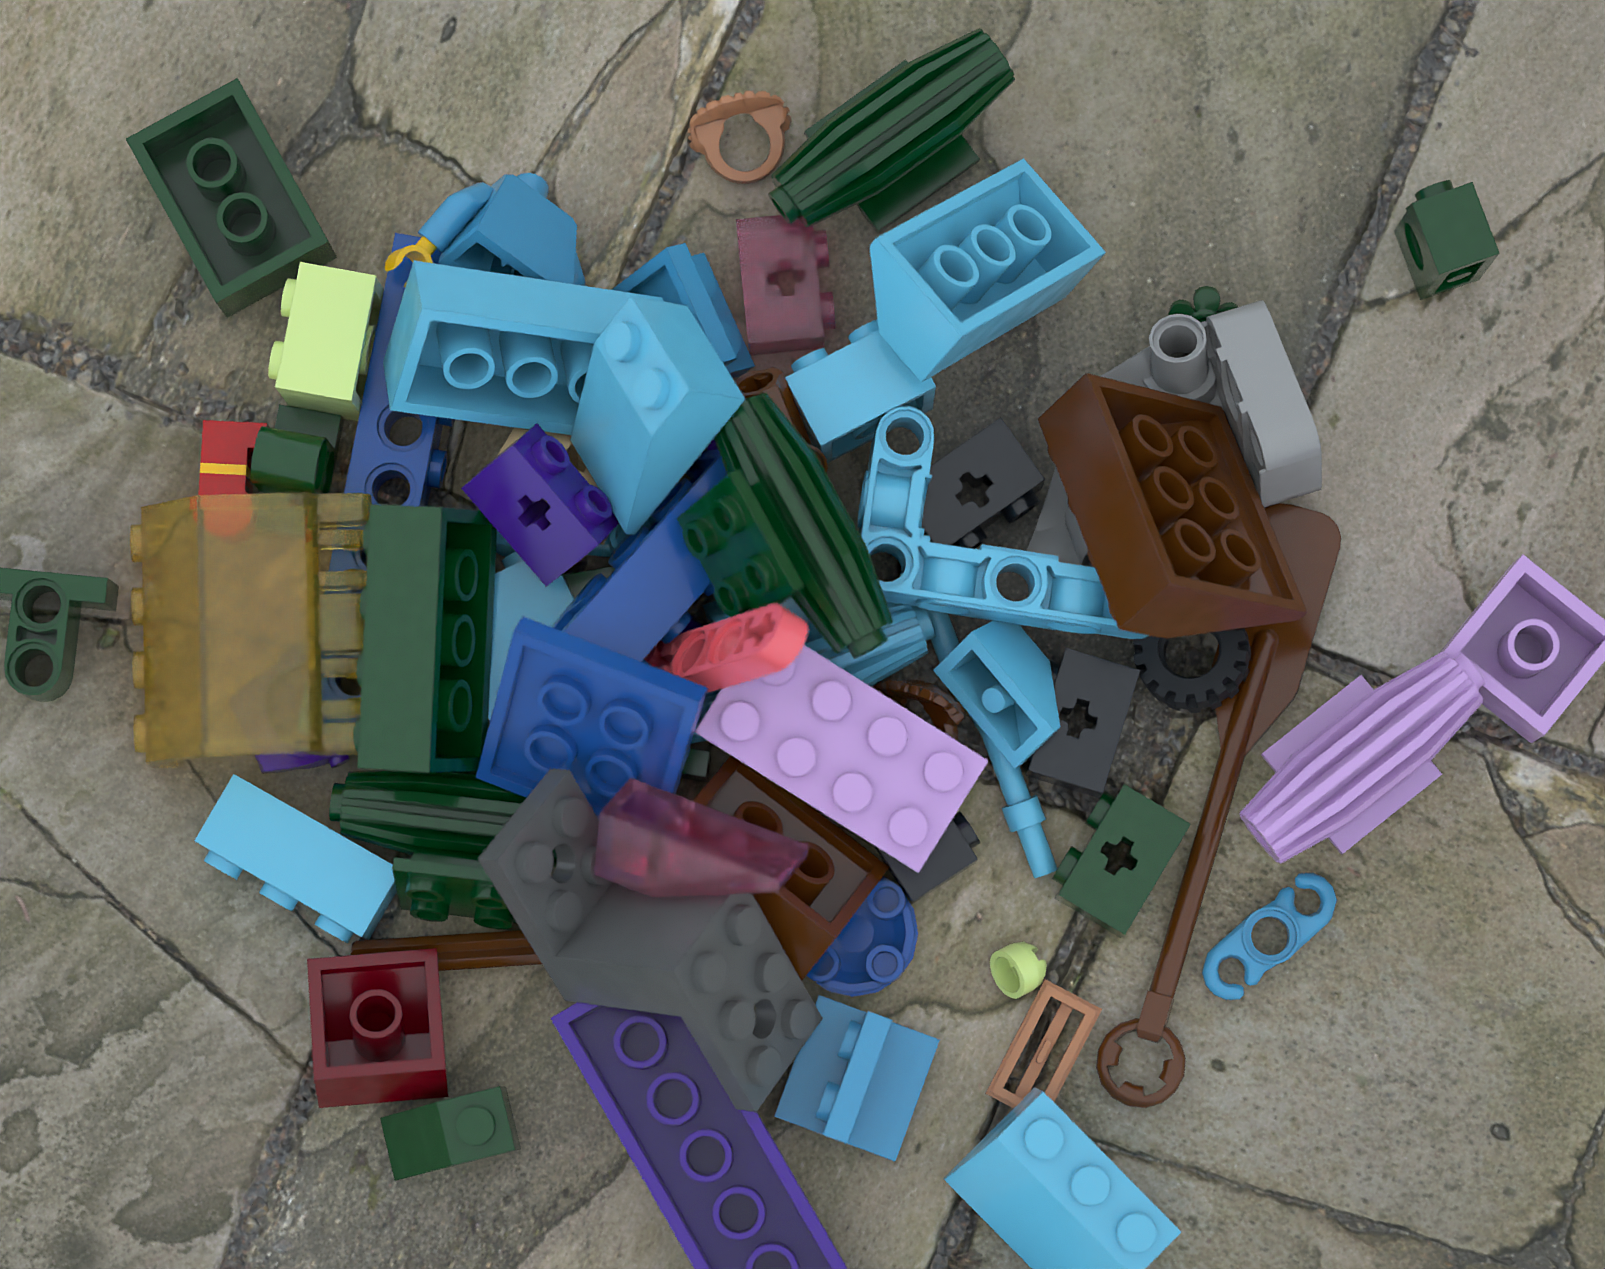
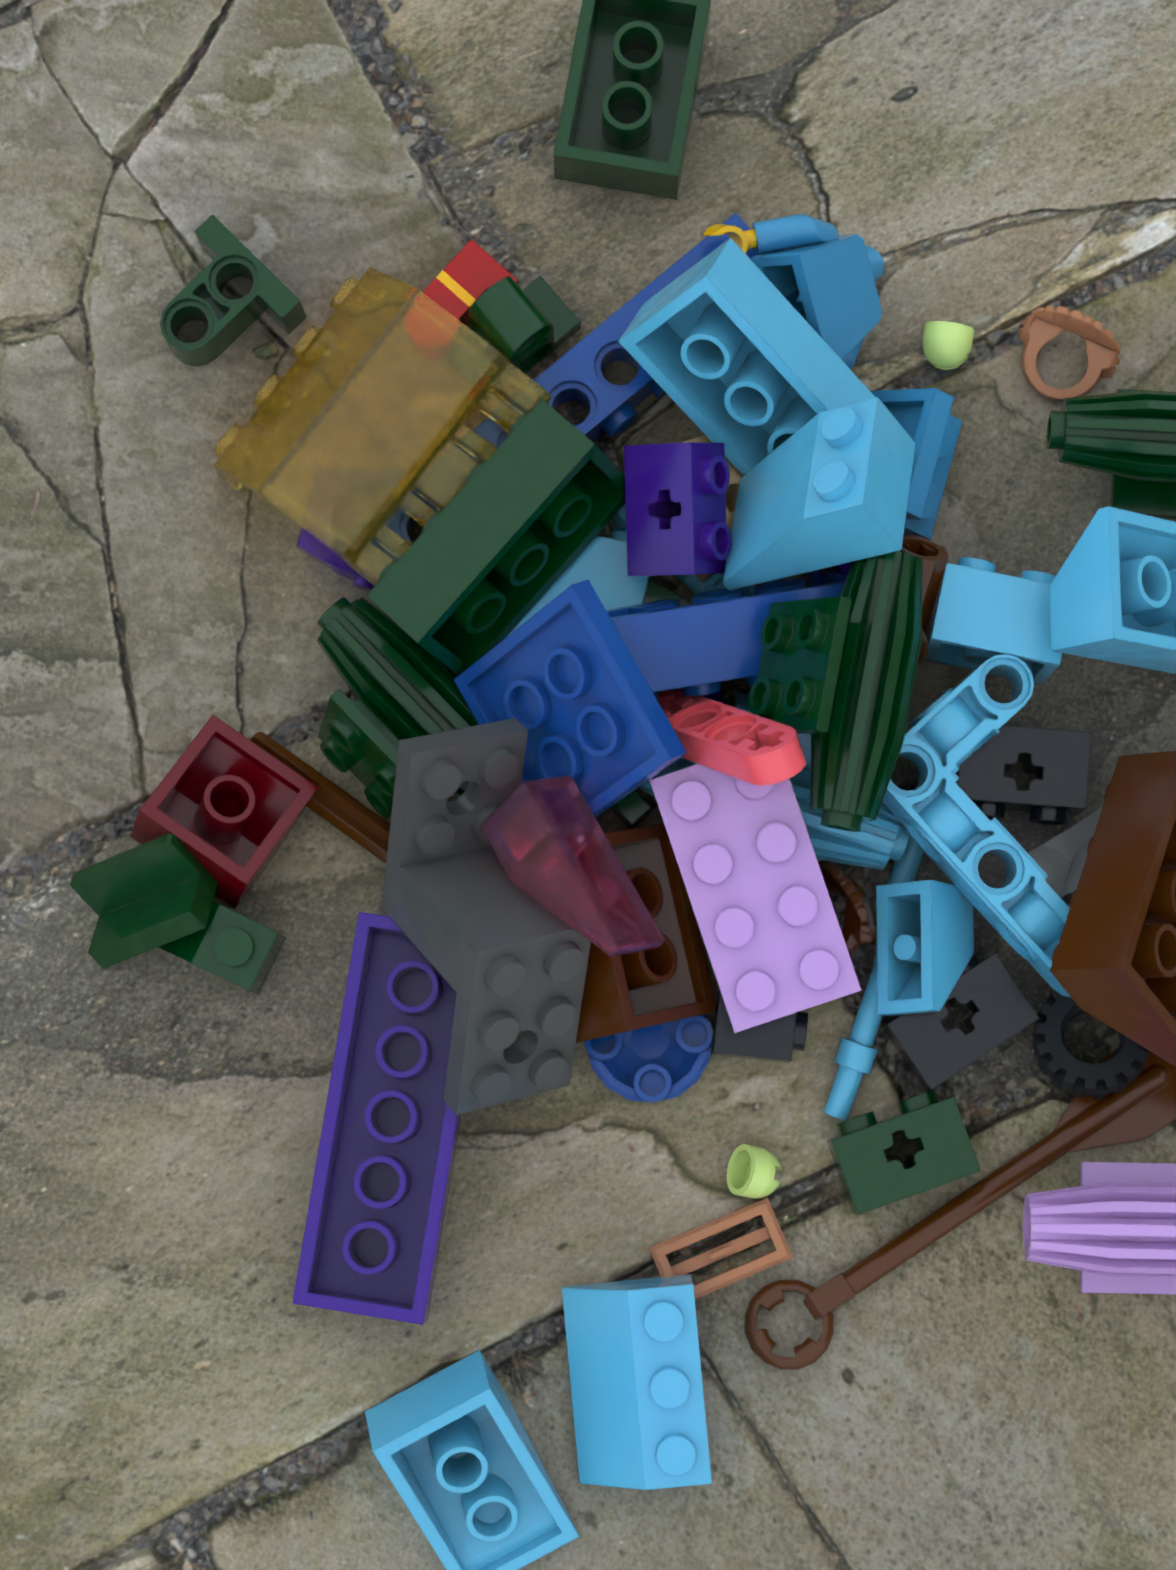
camera: 40 degrees right, 0 degrees up
(297, 860) = (268, 633): medium azure brick -> none
(326, 339) = (615, 250): yellowish green brick -> none
(373, 1146) = (145, 898): none -> dark green panel
(643, 202) = (947, 343): none -> yellowish green hinge
(774, 320) = (975, 518): clear pink brick -> none
(858, 1079) = (558, 1154): dark azure bracket -> none
(1299, 930) = (999, 1323): dark azure piece -> none

